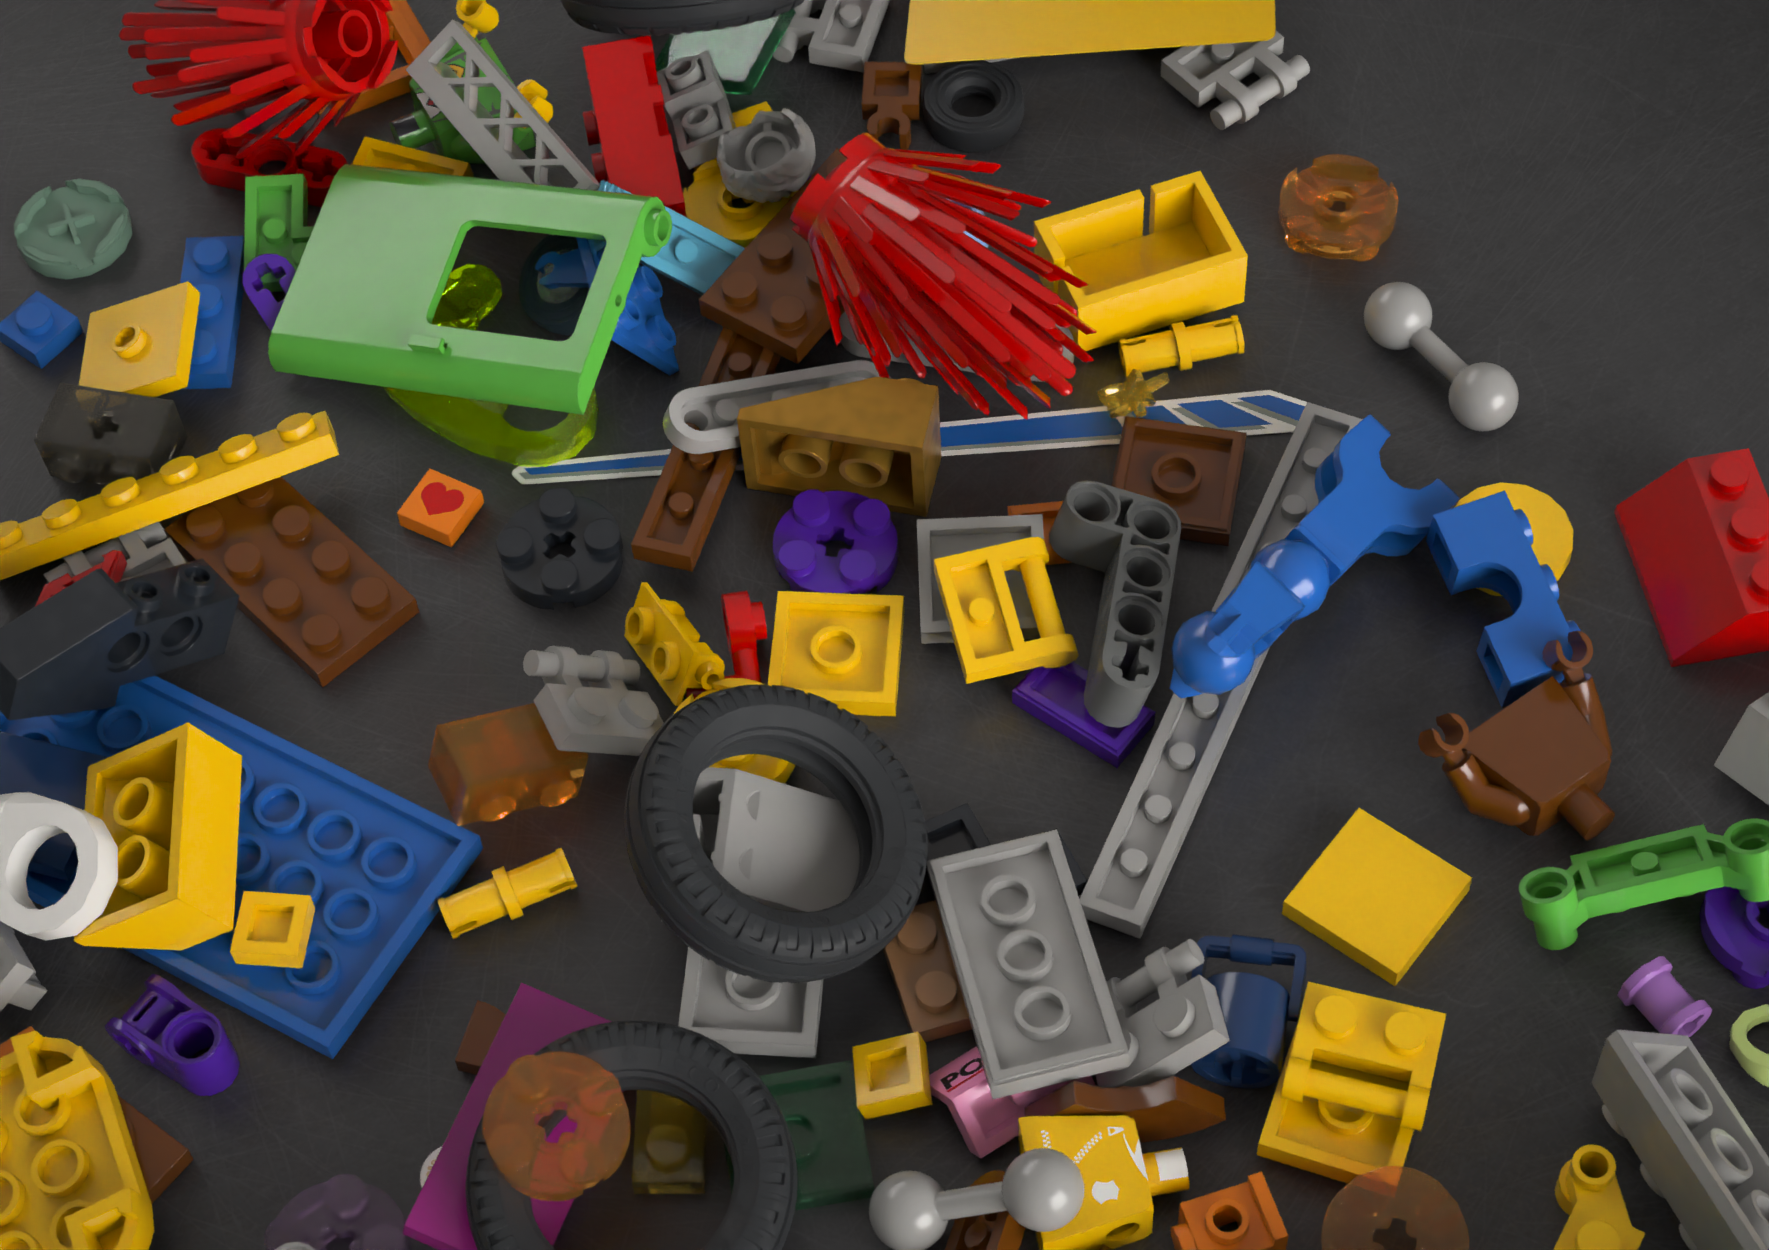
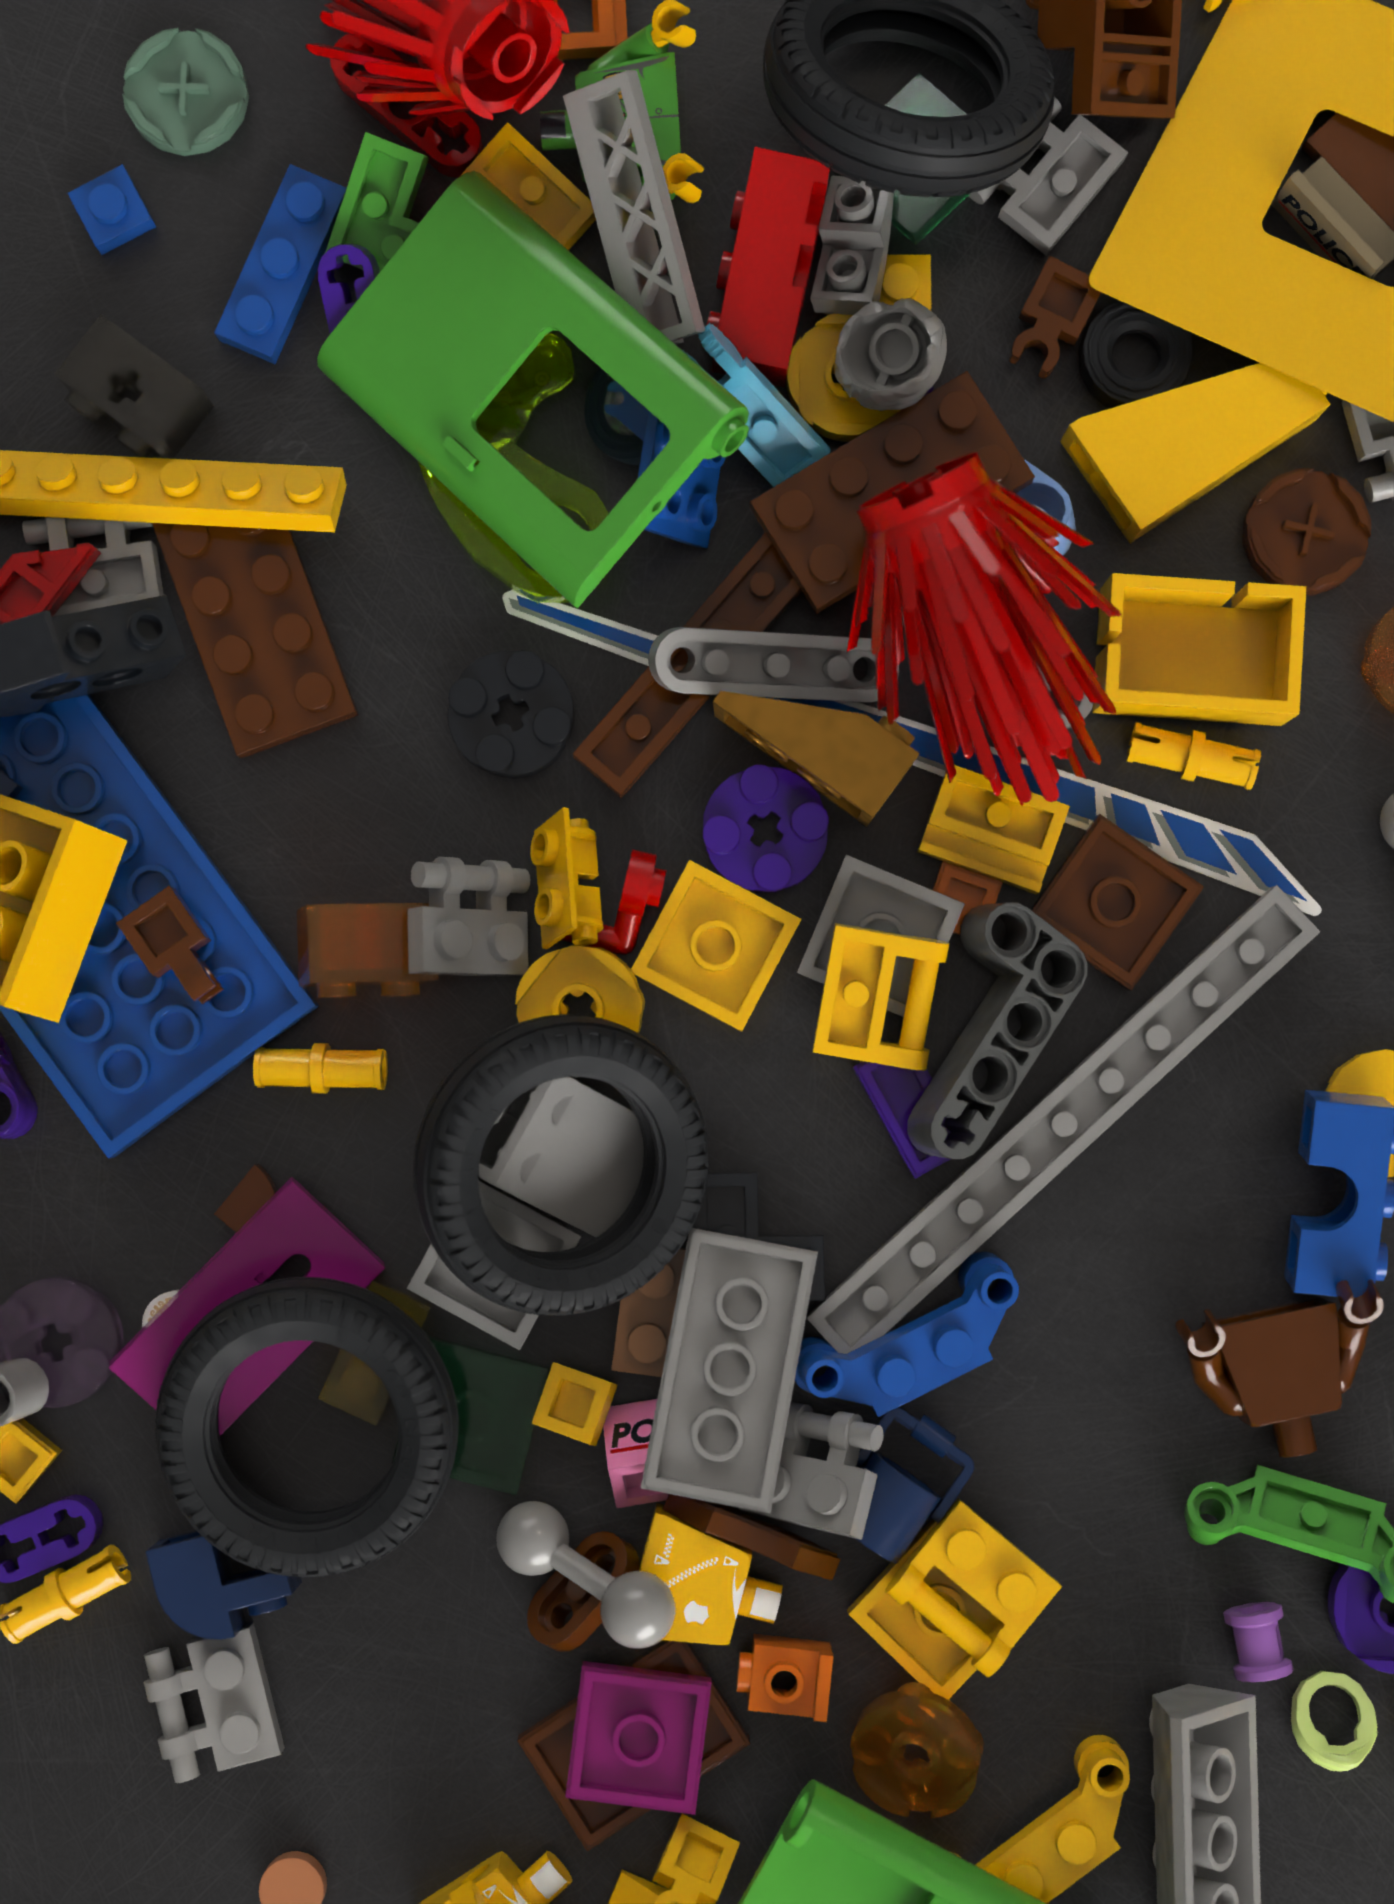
camera: 20 degrees right, 30 degrees up
(142, 343) = (195, 292): yellow plate -> none
(272, 929) = (95, 1032): yellow plate -> none
(316, 820) = (167, 939): none -> reddish brown plate
(440, 507) = (418, 611): orange tile -> none
(580, 1158) = (254, 1420): clear orange plate -> none
(1034, 460) = (993, 832): none -> yellow plate
(1057, 129) = (1186, 441): none -> yellow slope
(1131, 394) = (1117, 797): clear yellow plant -> none
(1183, 149) = (1307, 530): none -> reddish brown tile
(1197, 887) = (920, 1352): none -> blue plate
(1289, 579) = (1245, 1050): blue piece -> none
(1376, 896) = (1072, 1418): yellow tile -> none

